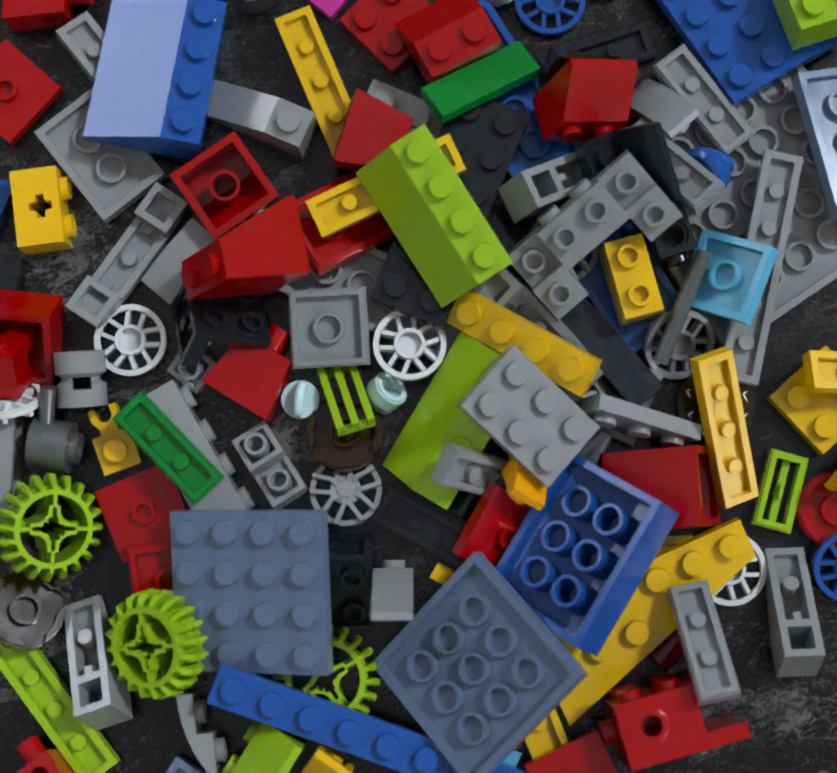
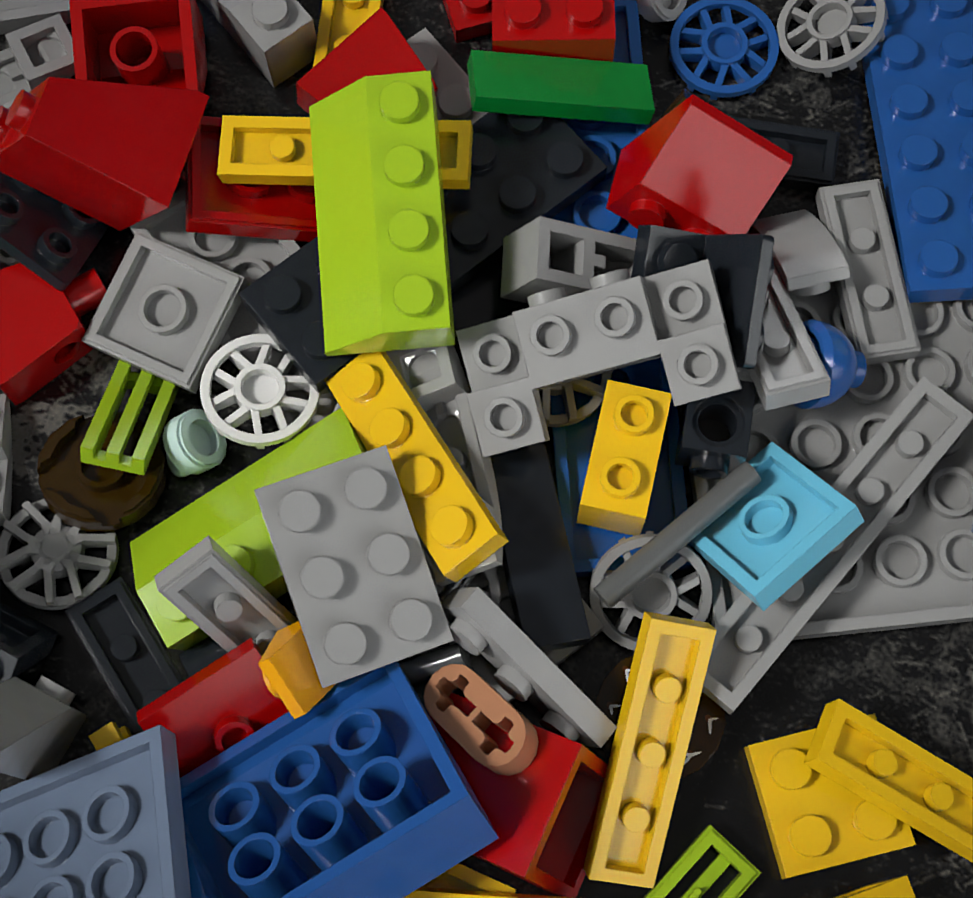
camera: 30 degrees right, 10 degrees down
(300, 399) = (72, 391): light aqua tile -> none
(631, 467) = (470, 730): none -> nougat beam

